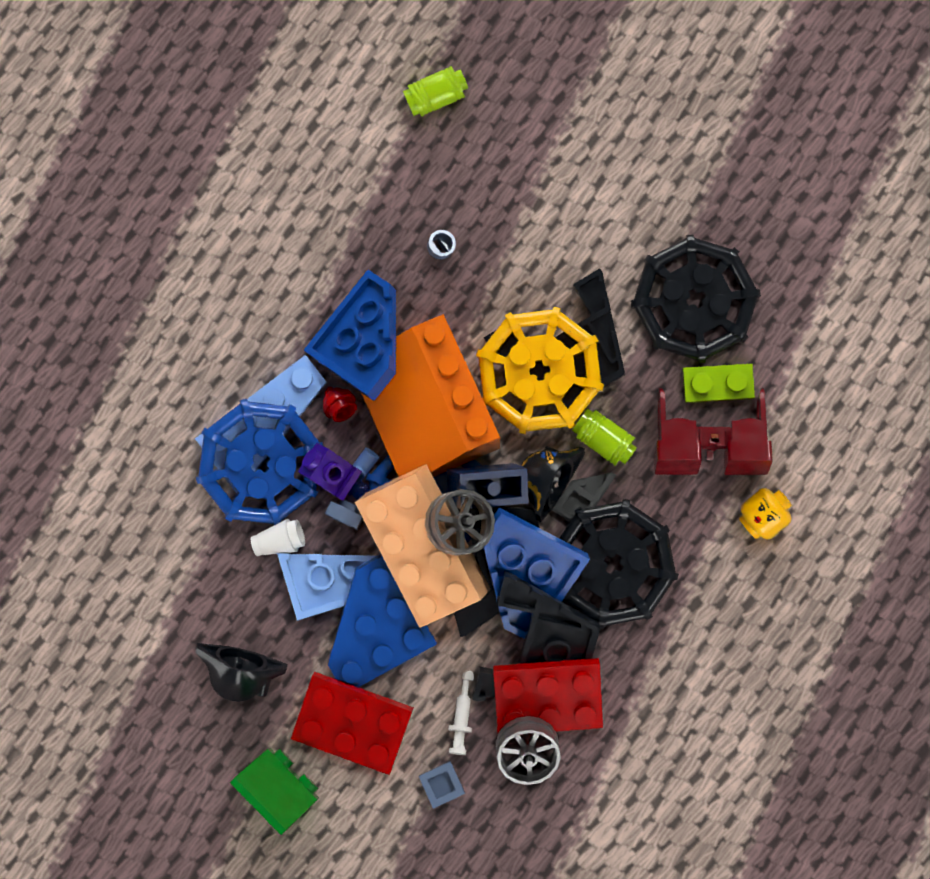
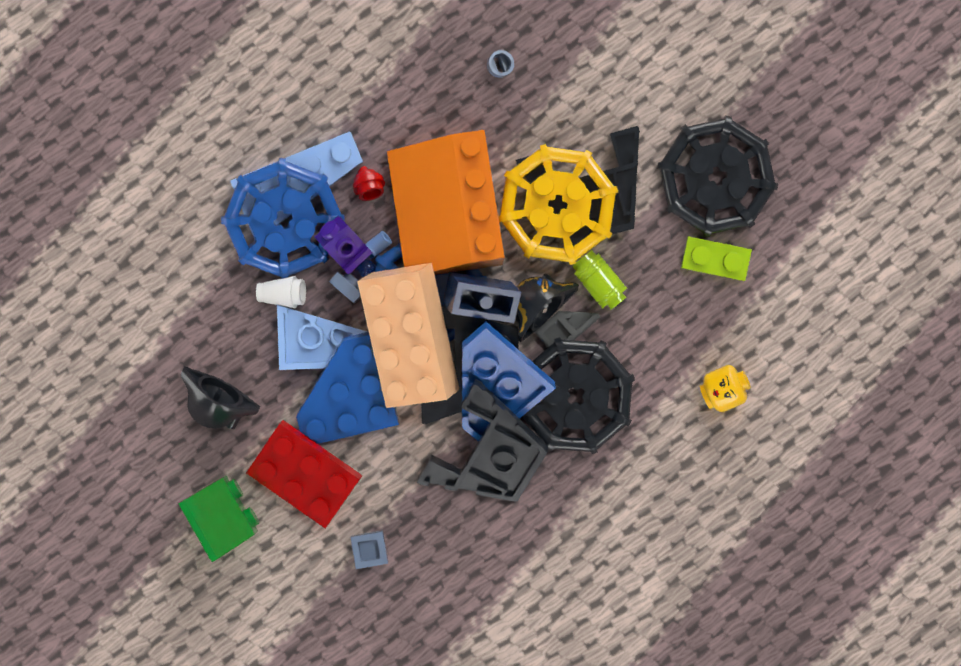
camera: 10 degrees right, 5 degrees up
(361, 337) = (404, 129): blue plate -> none
(460, 522) = (446, 326): flat silver wheel -> none
(461, 716) = (403, 494): white piece -> none
(527, 750) = (453, 543): flat silver wheel -> none
(556, 691) = (484, 498): red plate -> none
(681, 443) = (668, 303): dark red piece -> none

